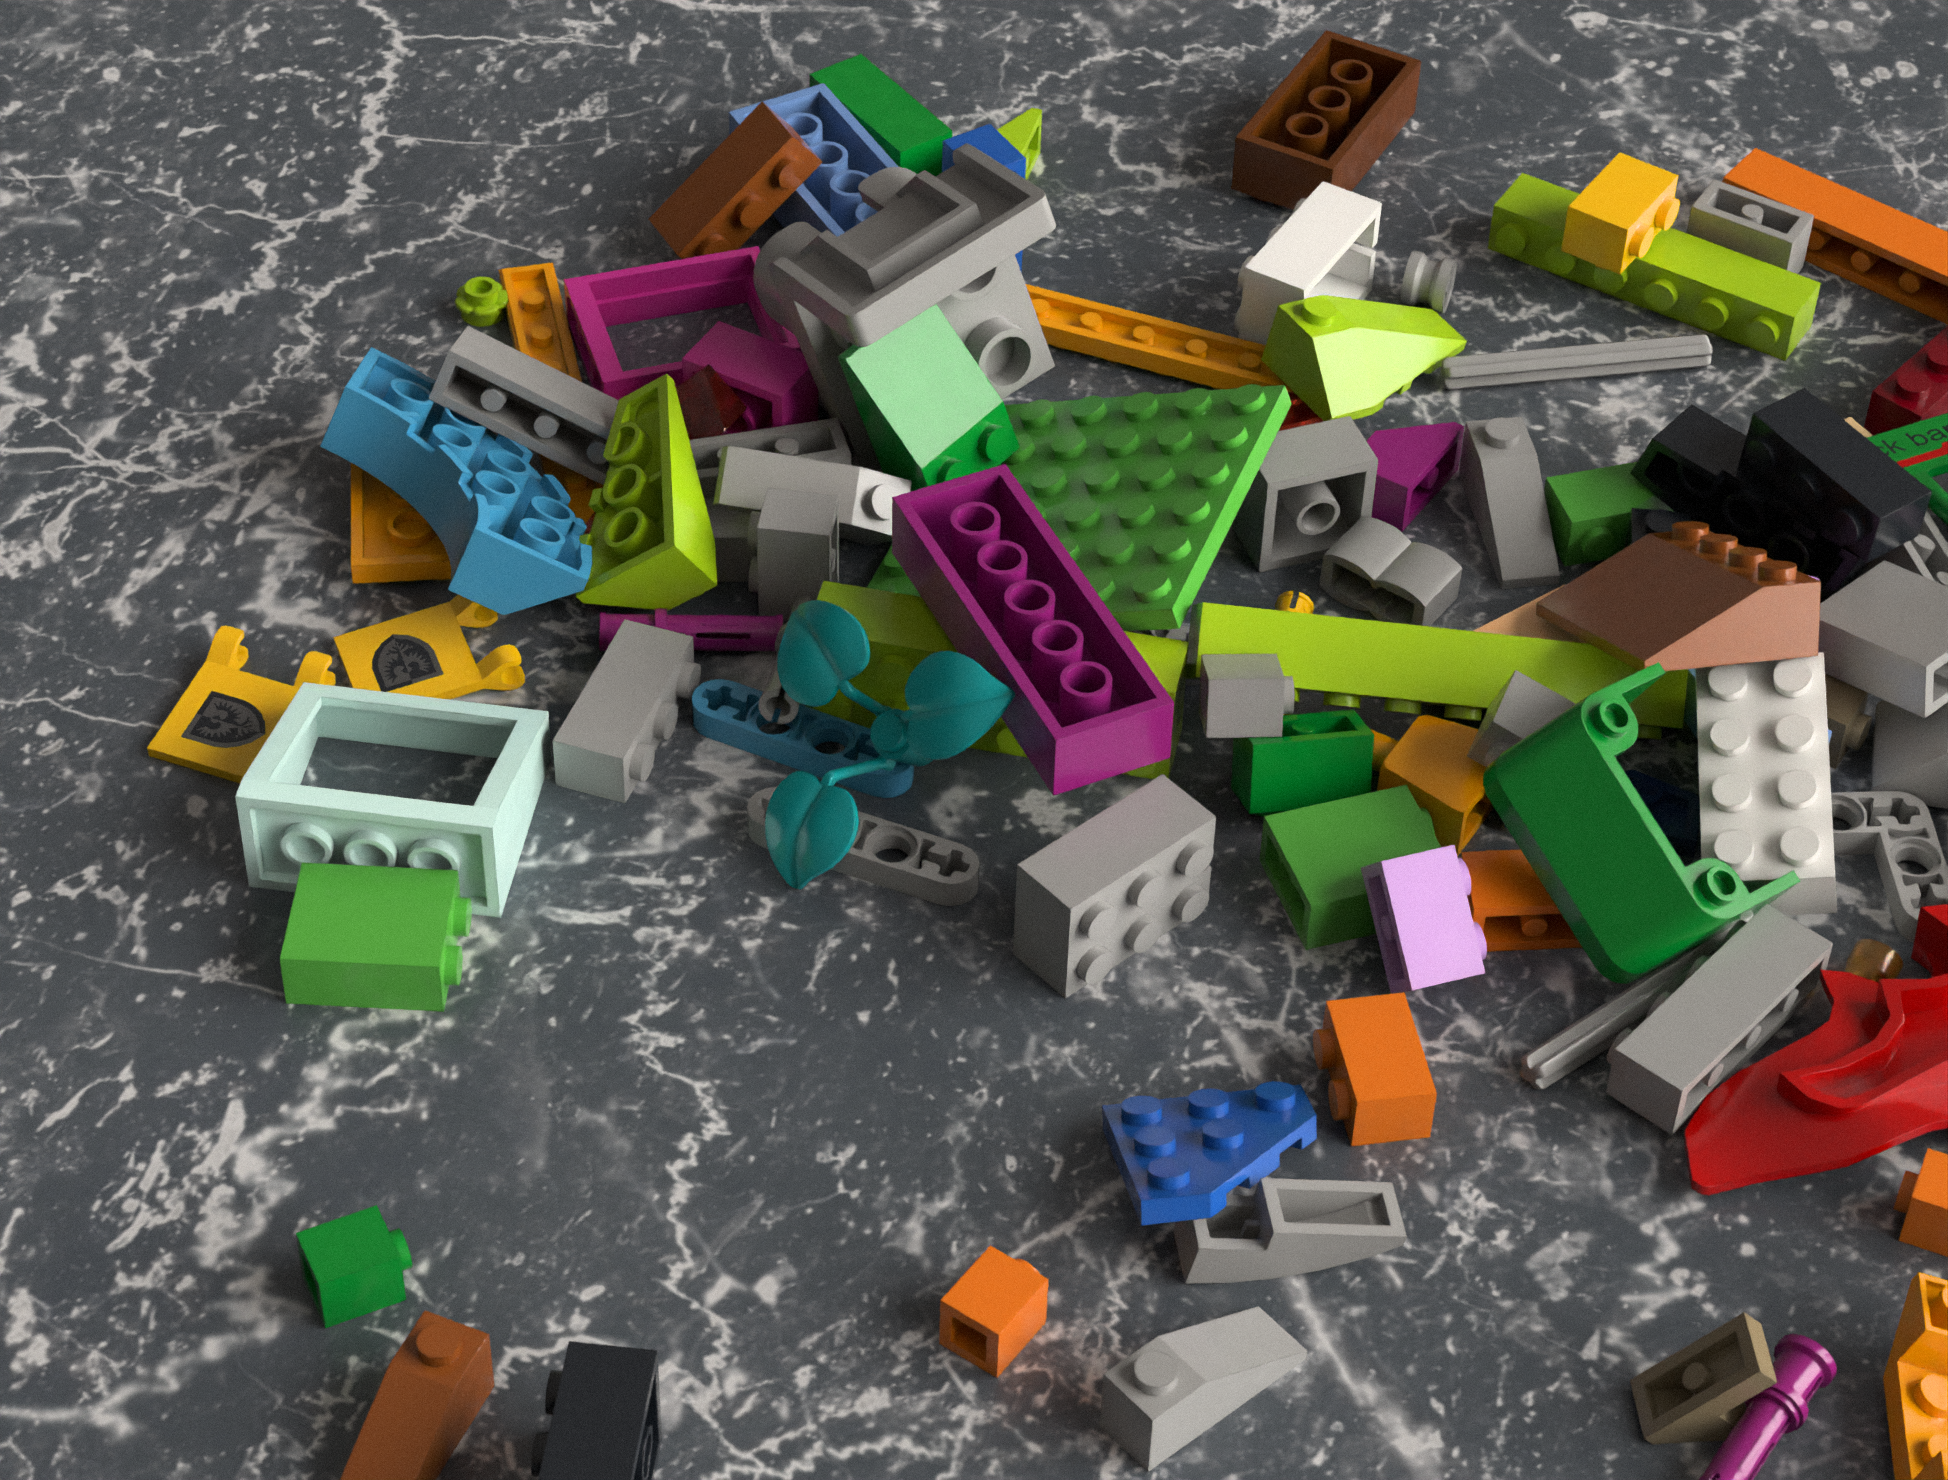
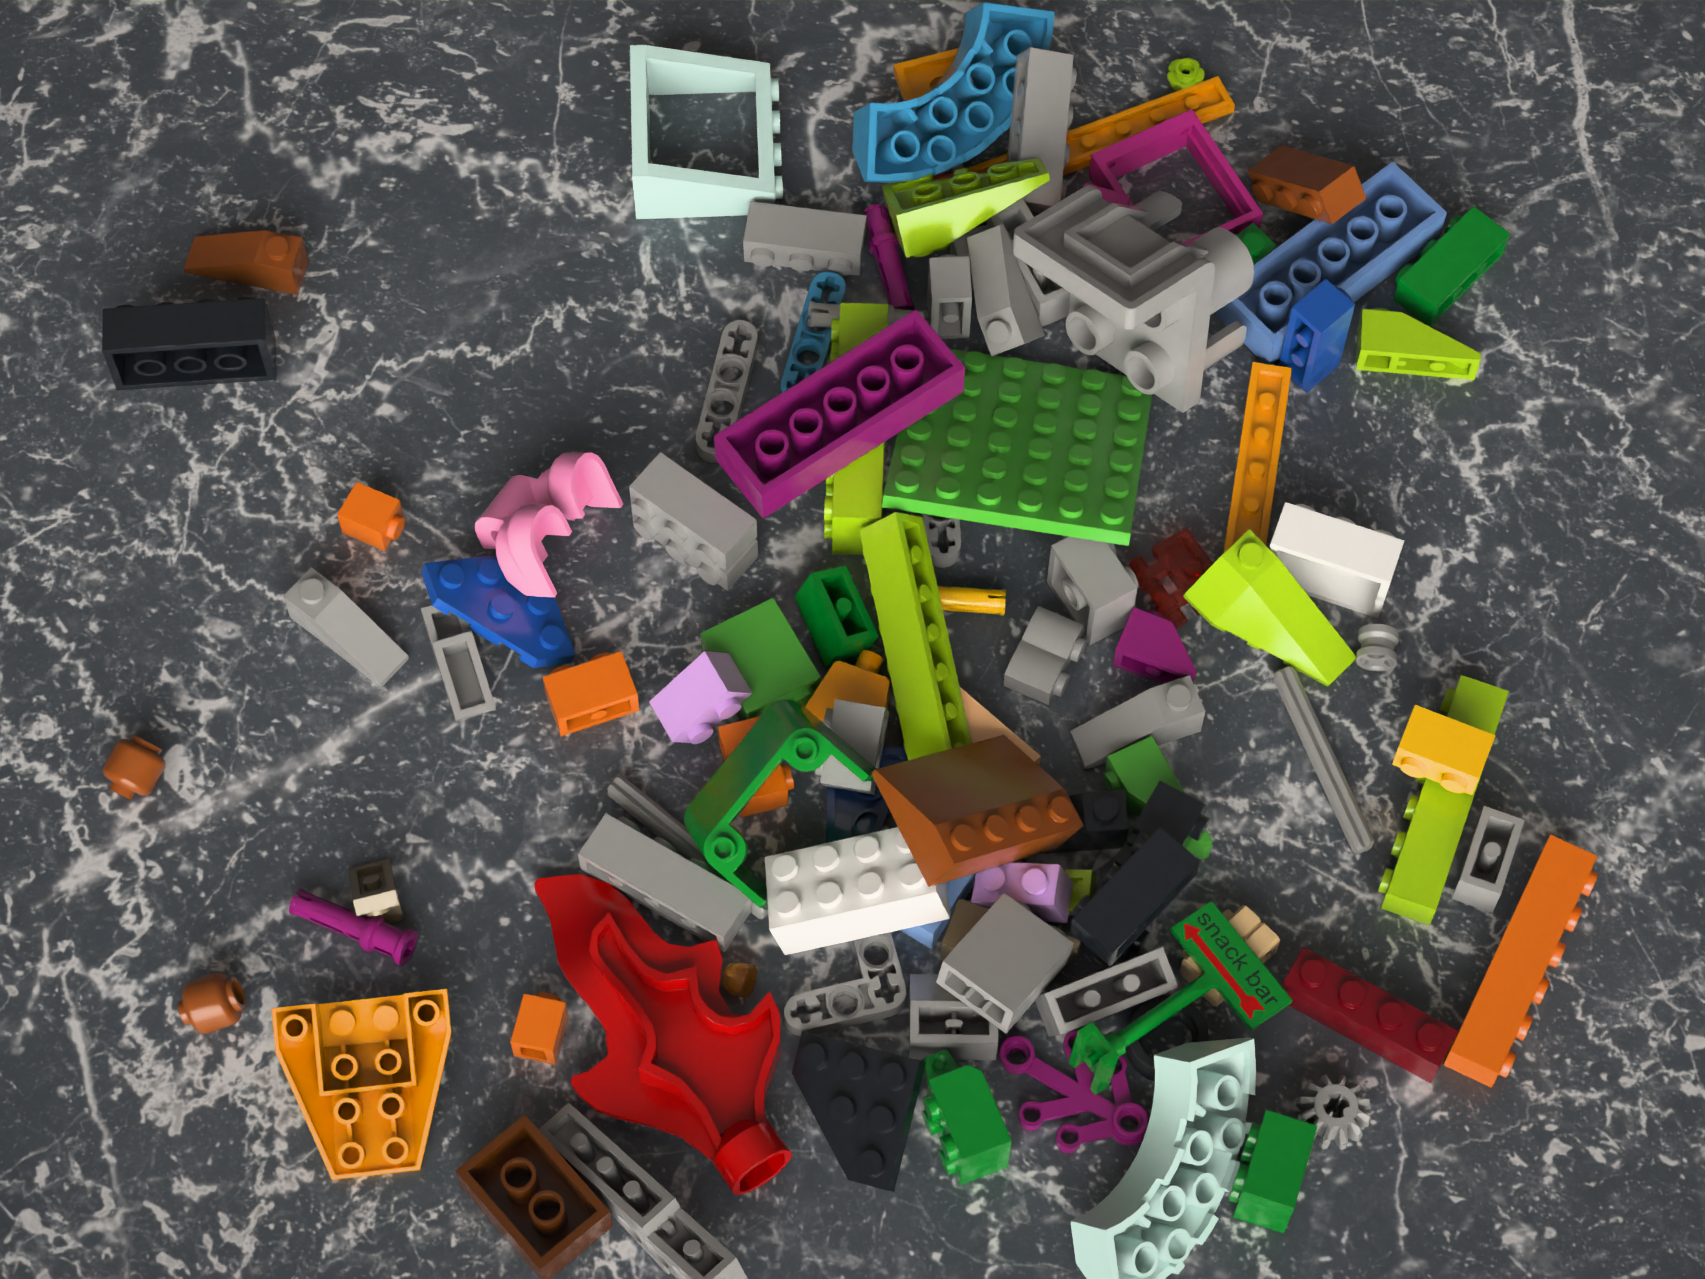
camera: 80 degrees right, 20 degrees up
(228, 711) = (772, 40): yellow flag -> none
(353, 1265) = (349, 204): green brick -> none
(374, 937) = (589, 154): bright green brick -> none
(428, 654) = (825, 123): yellow flag -> none
(928, 403) = (1066, 343): slope -> none
(950, 708) = (754, 384): teal plant -> none
(1064, 1111) = (539, 507): none -> bright pink piece
(1244, 695) = (845, 558): light grey brick -> none
(1325, 121) = (1537, 554): reddish brown brick -> none

